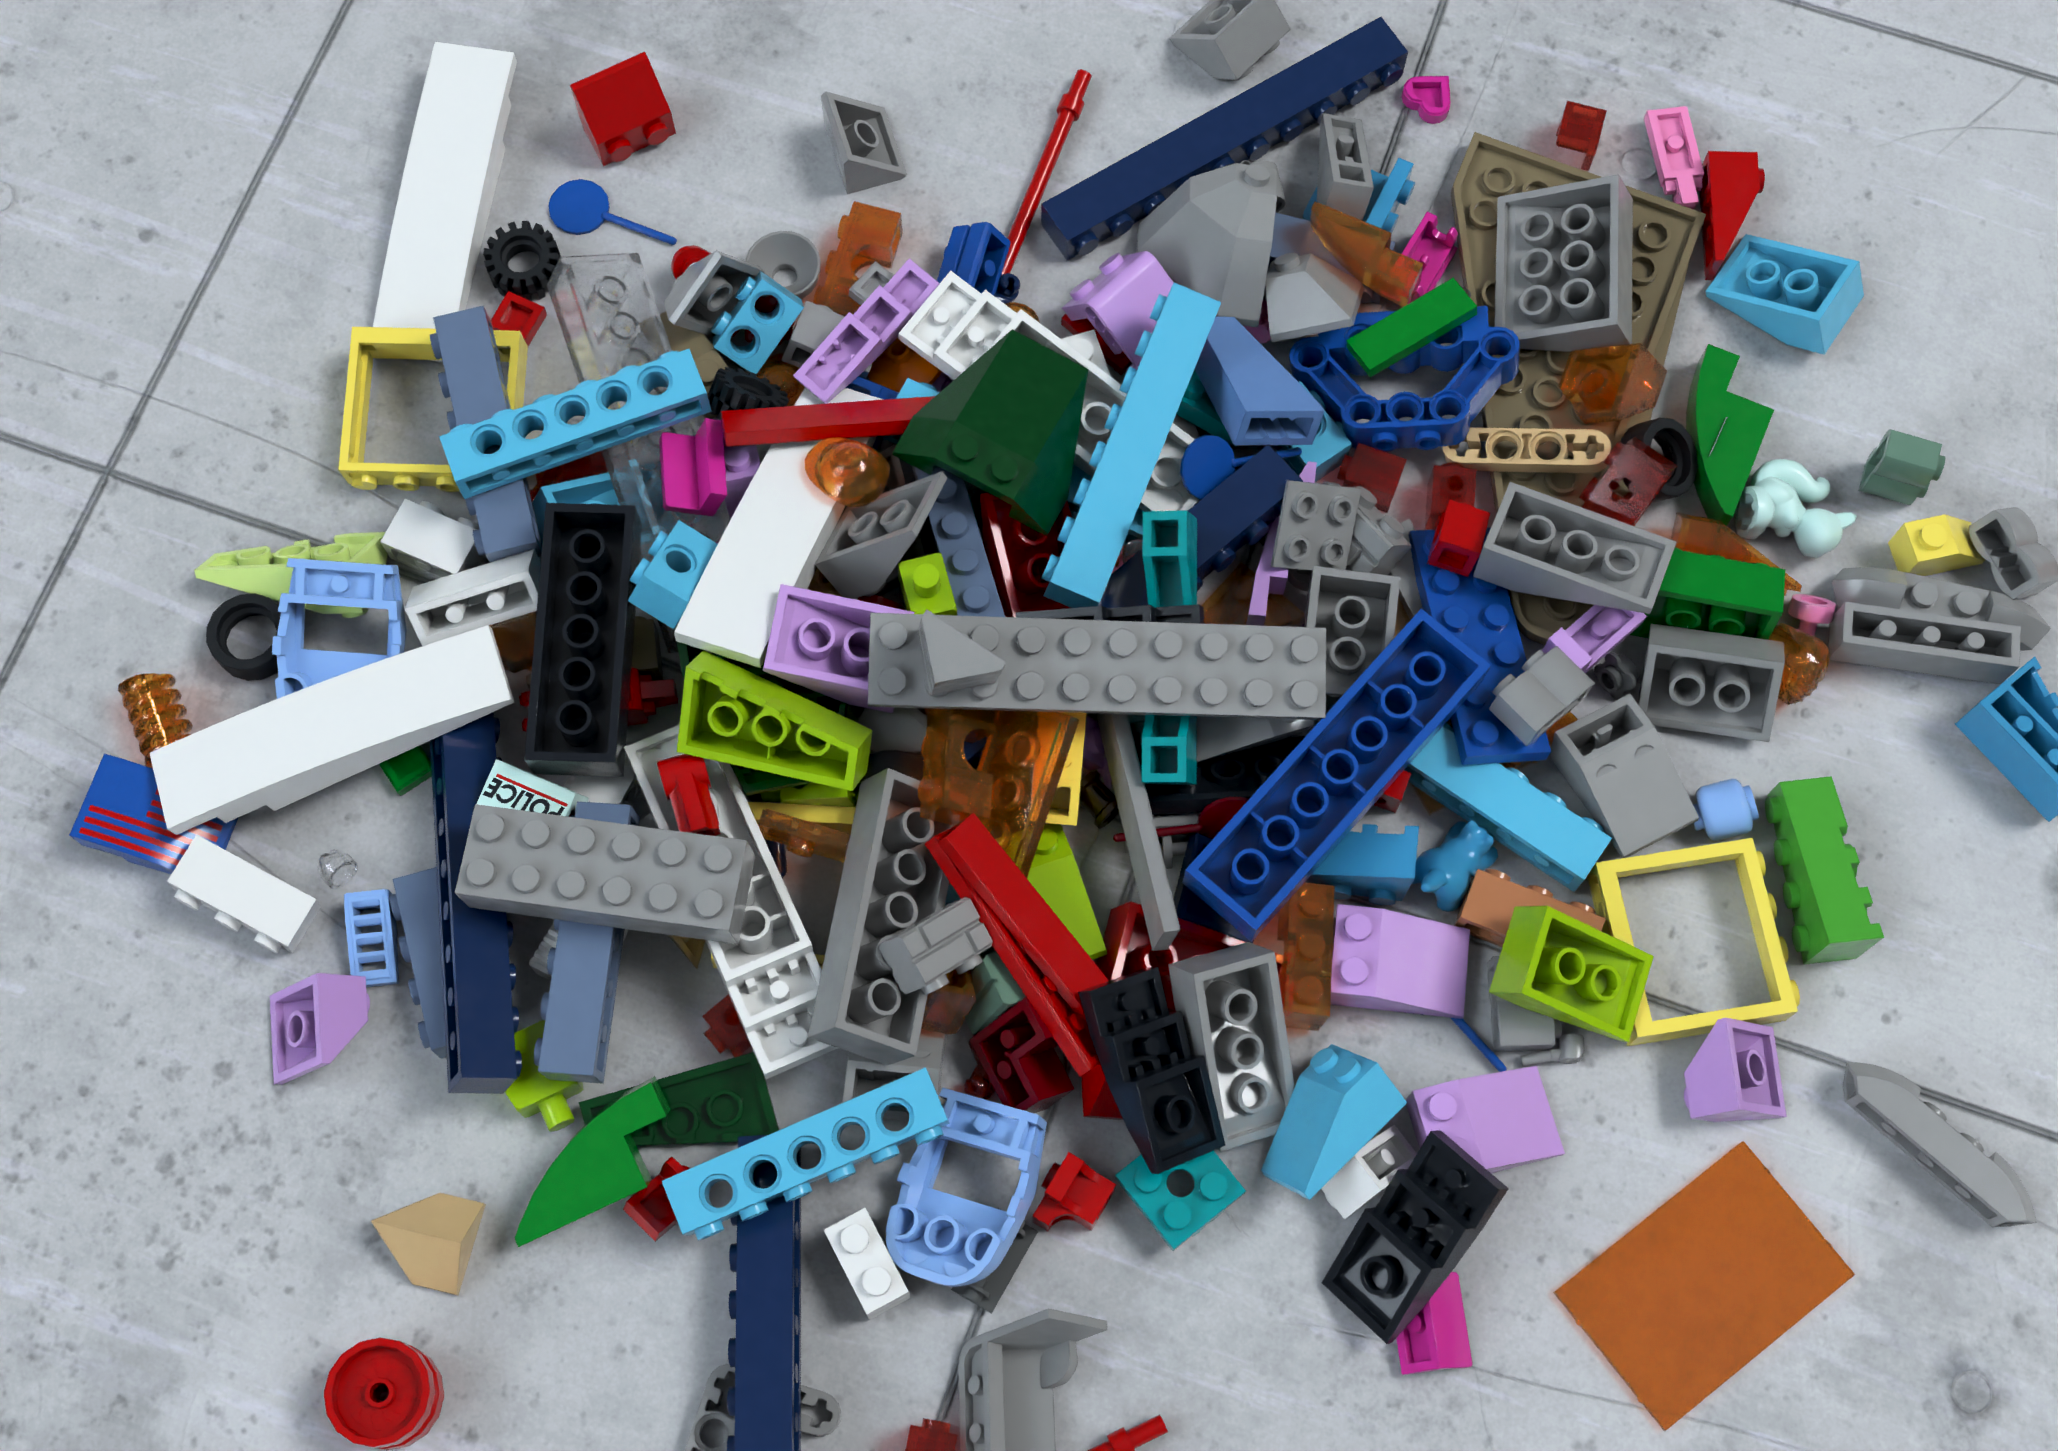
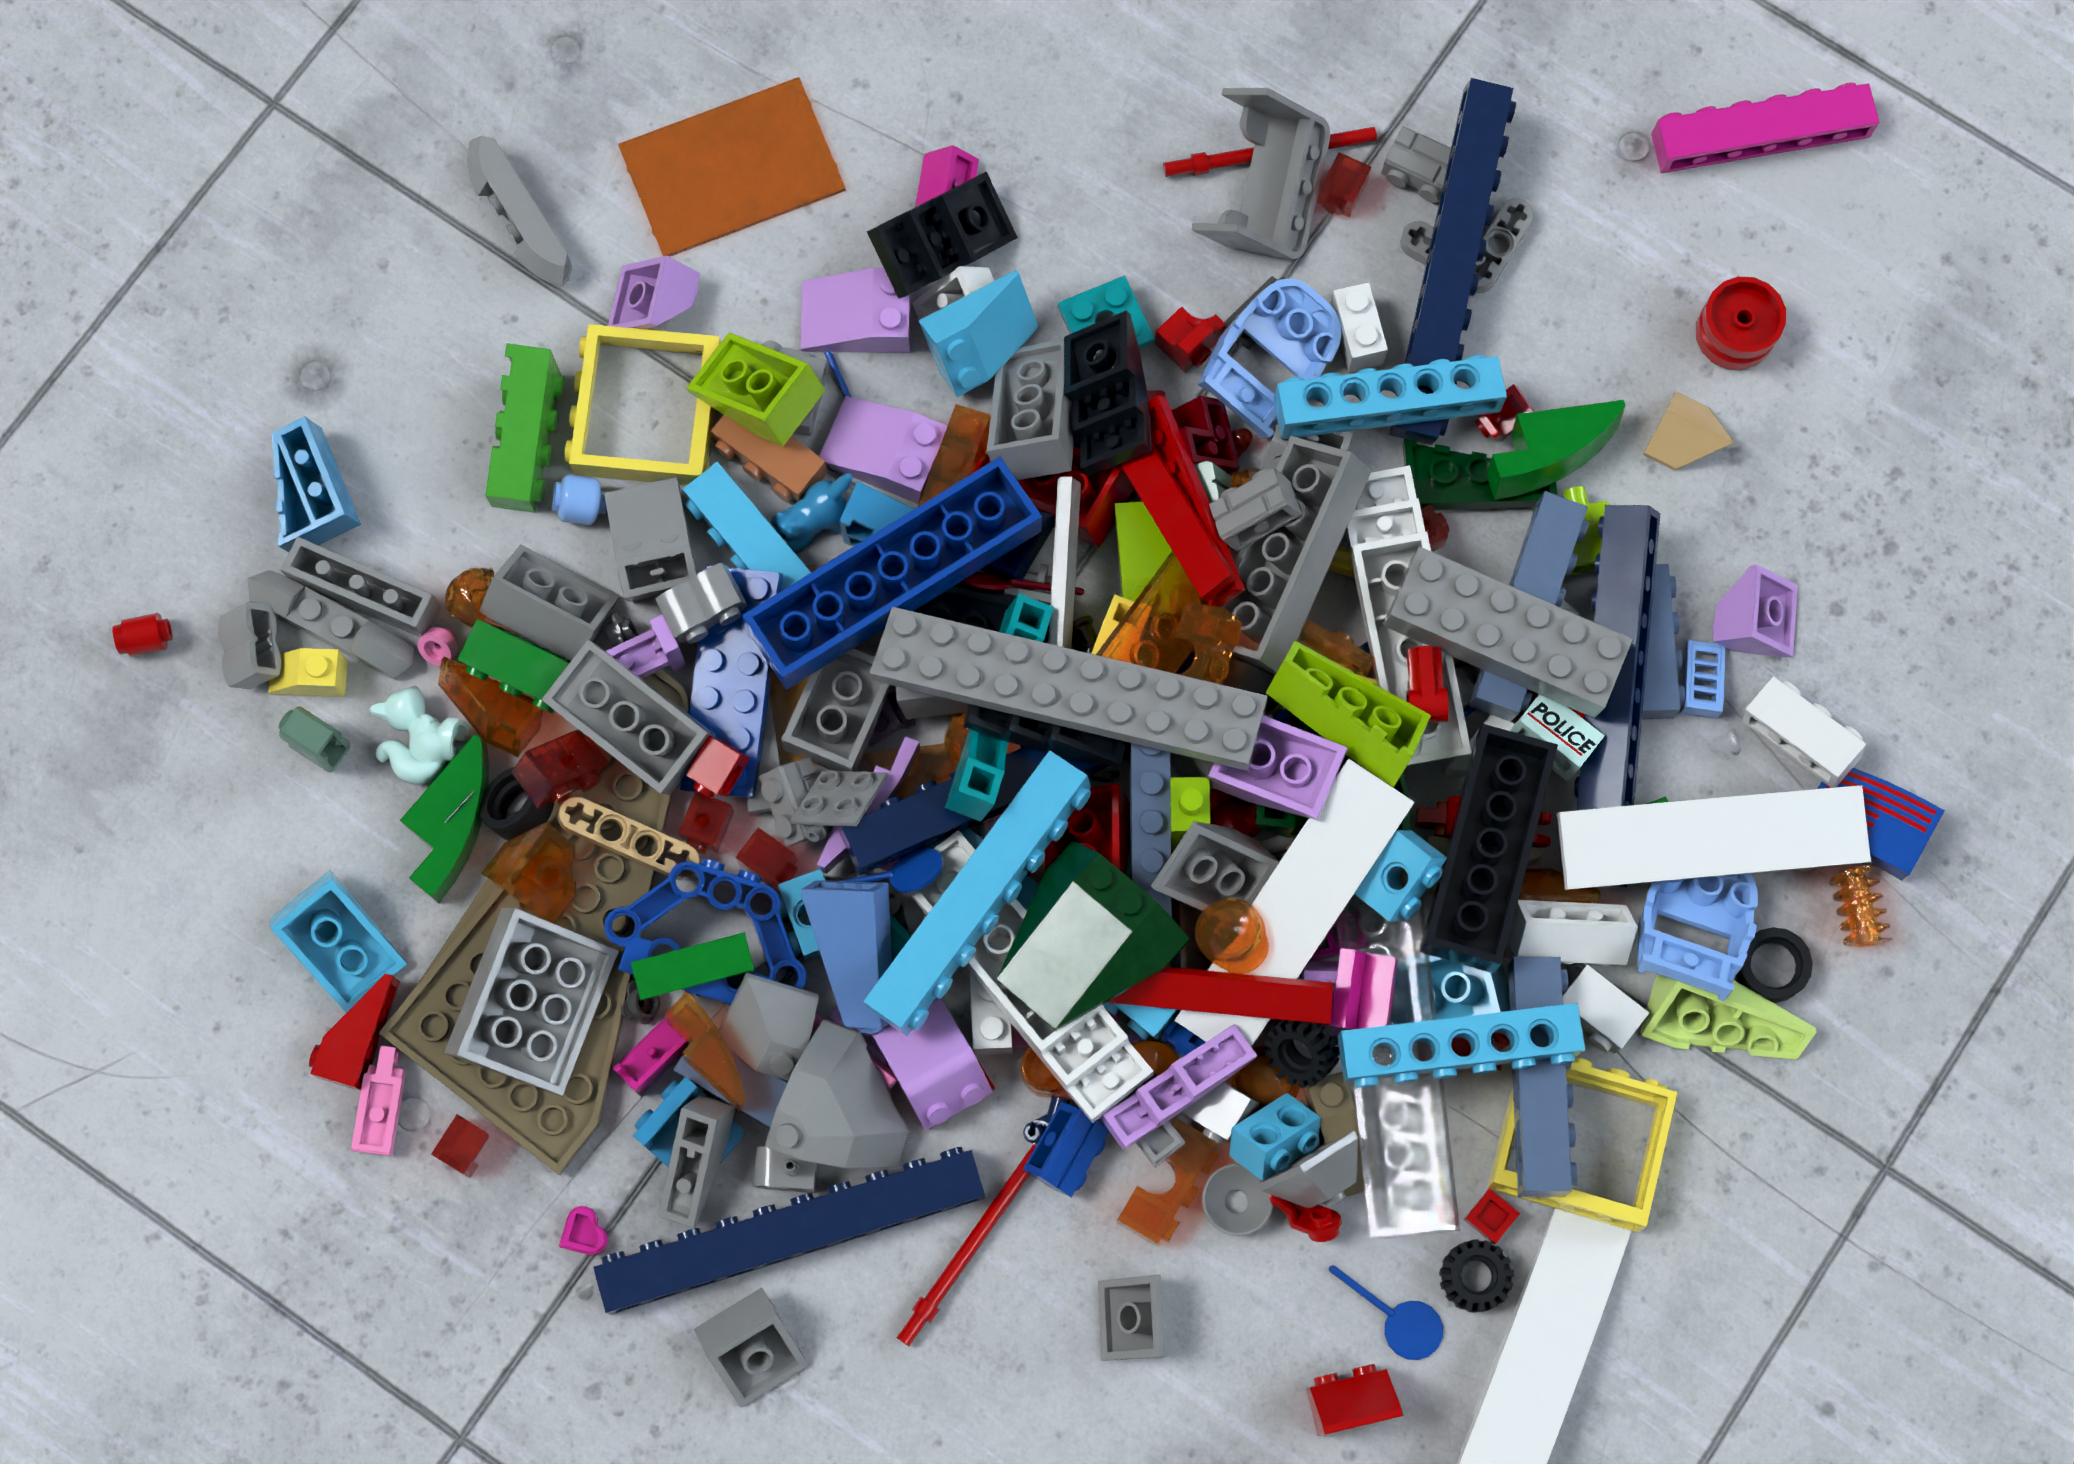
camera: 165 degrees left, 5 degrees up
(953, 658) = (1188, 685): light grey slope -> none

